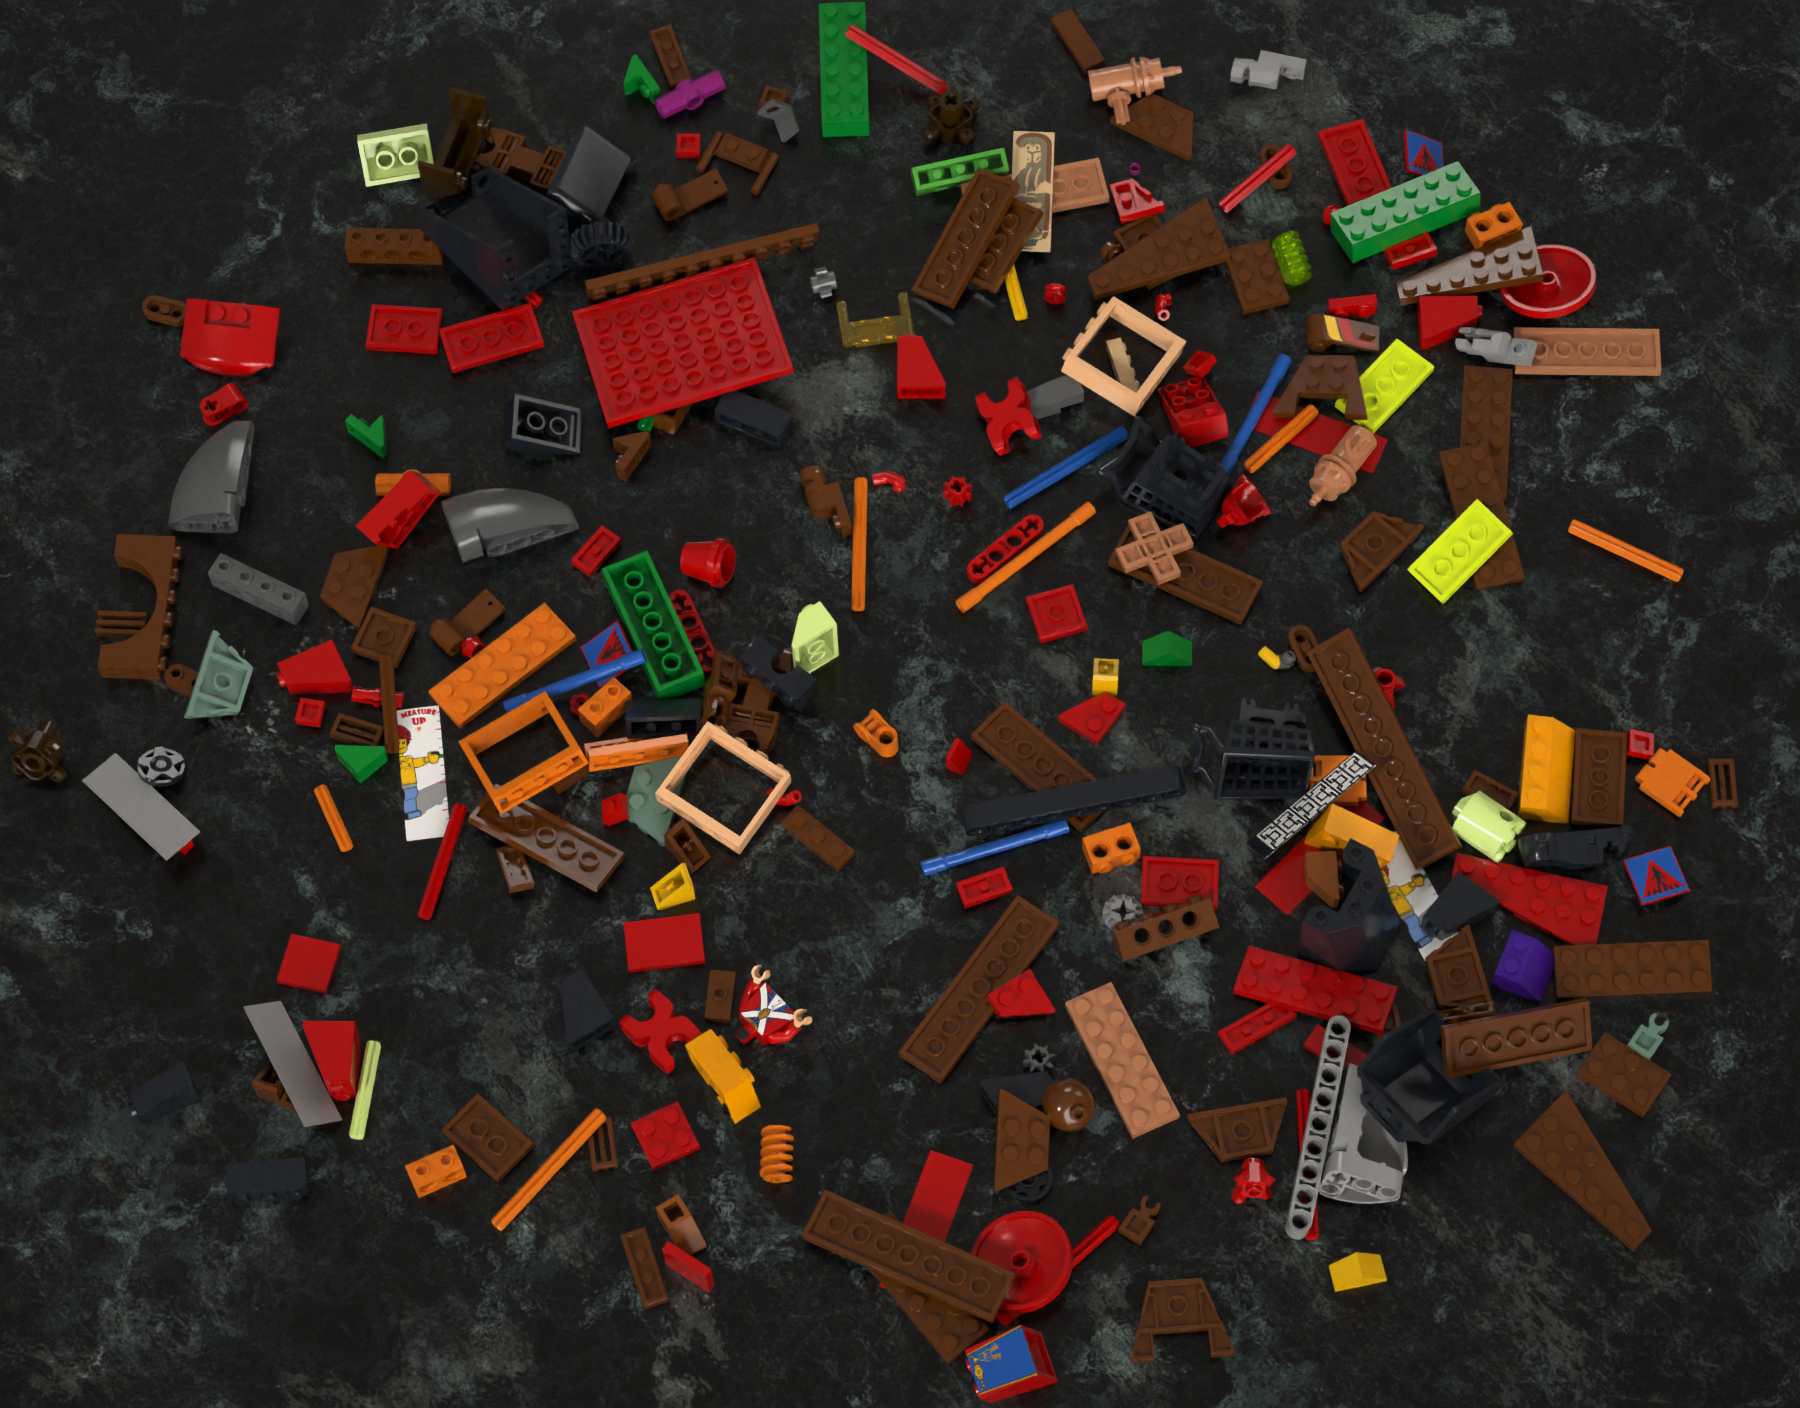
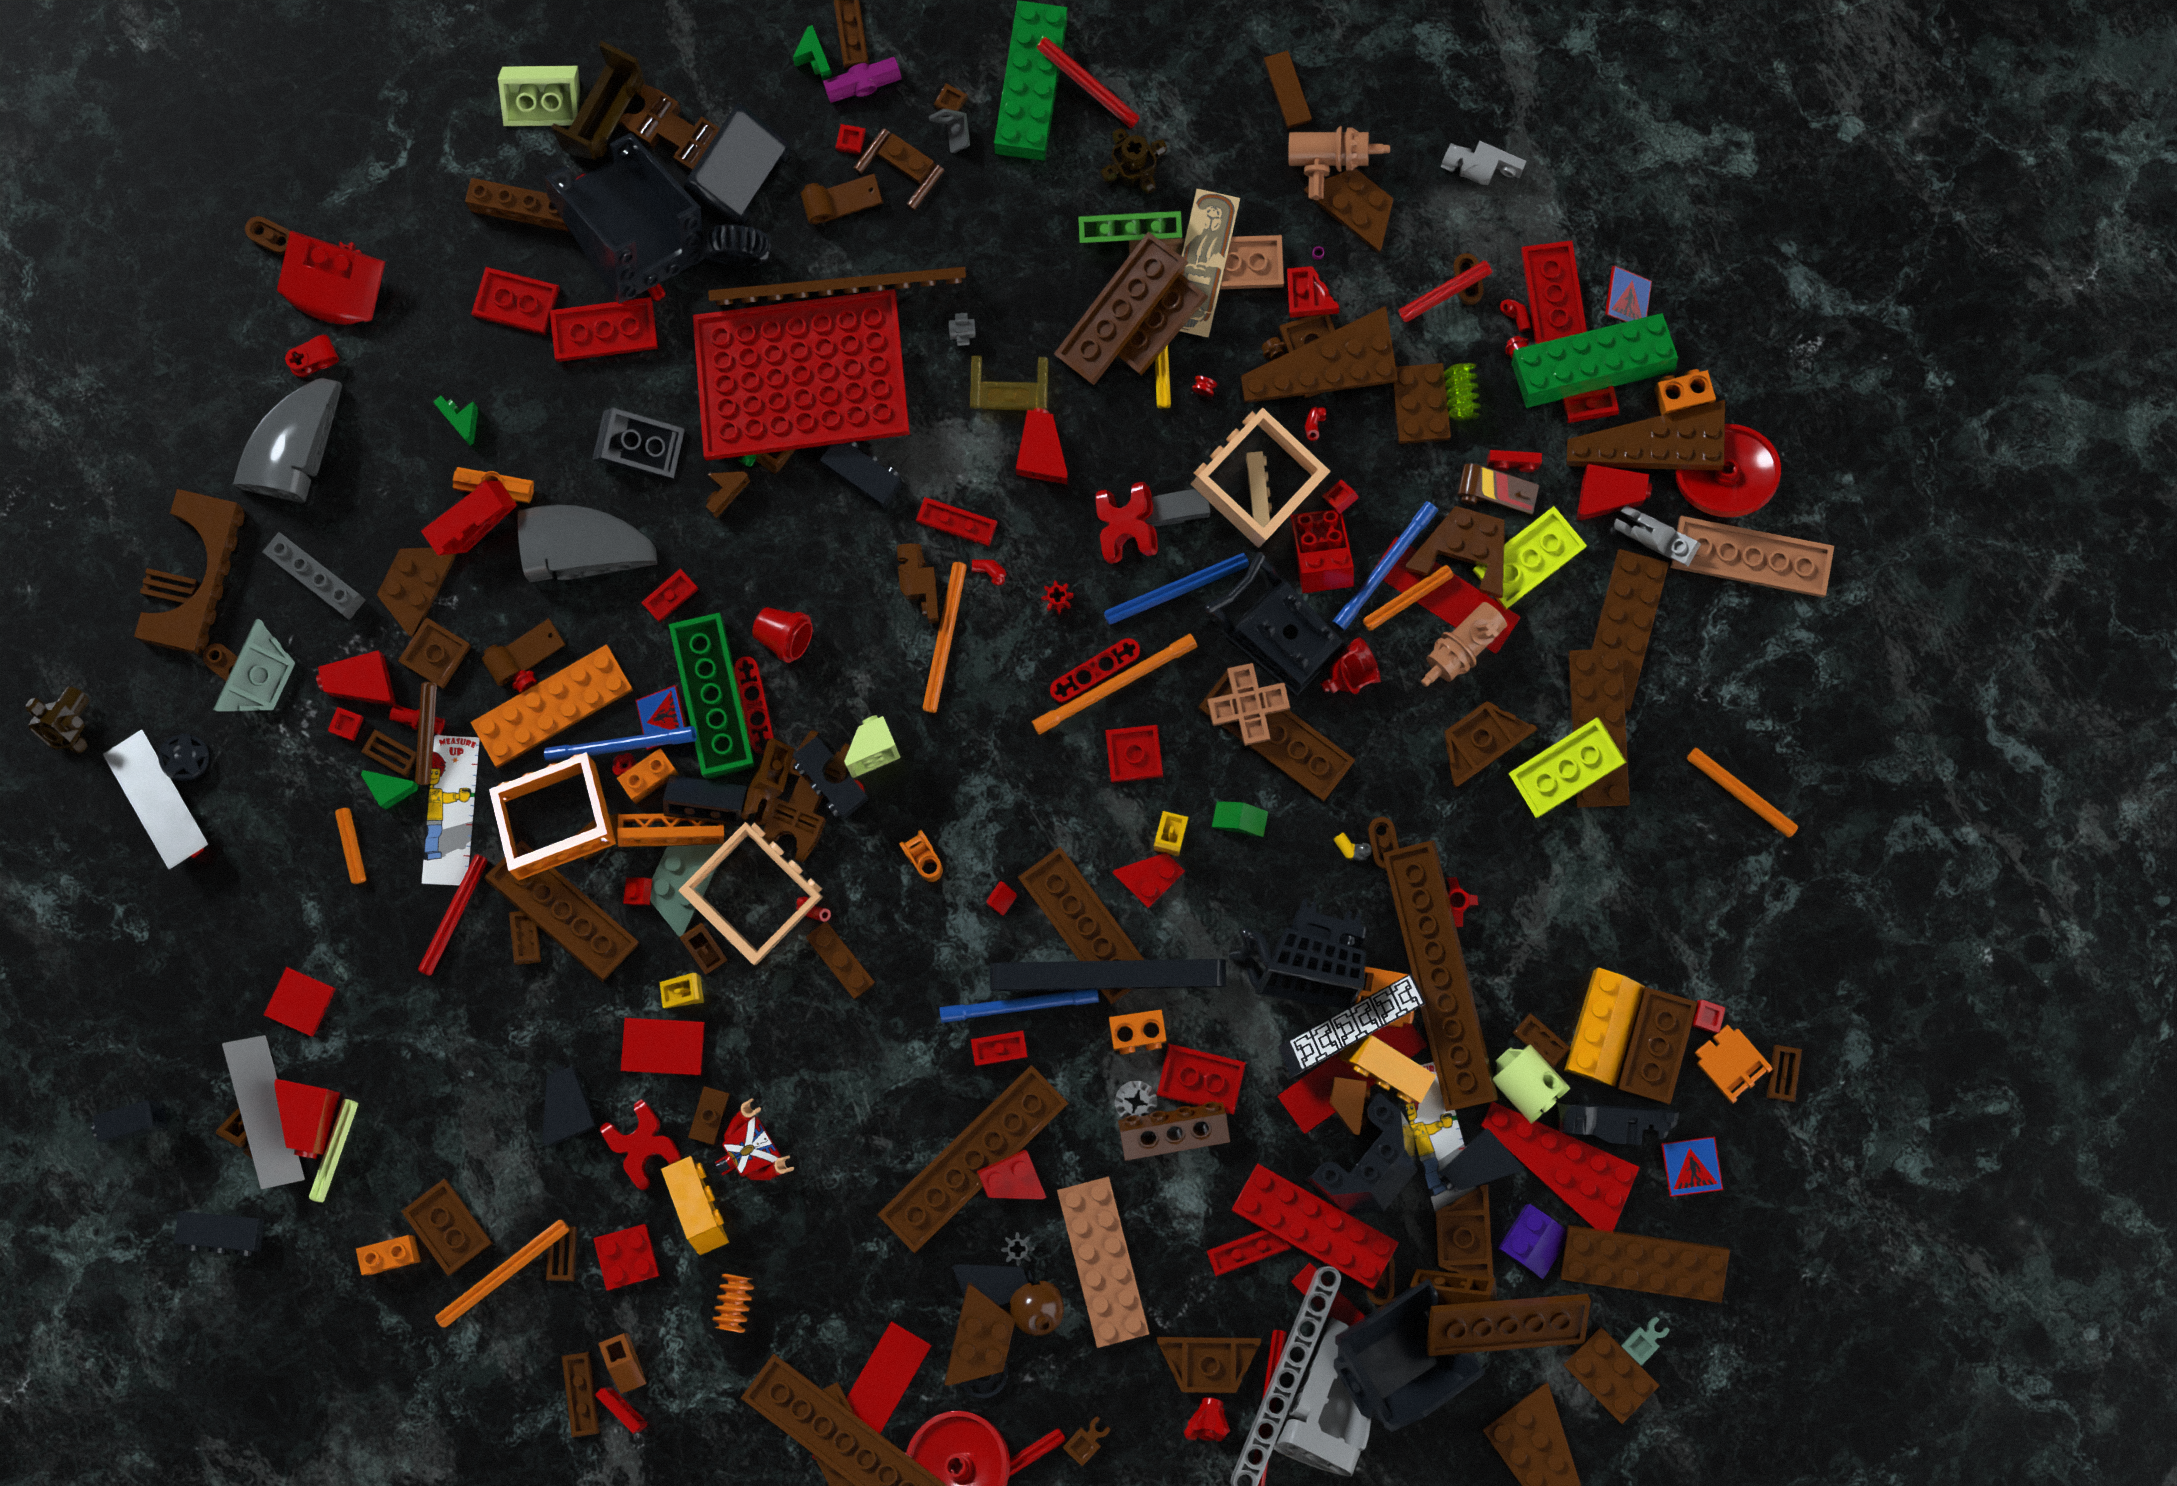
camera: 10 degrees right, 15 degrees up
(850, 445) = (956, 521): none -> red tile
(1326, 186) = (1518, 312): none -> red arm

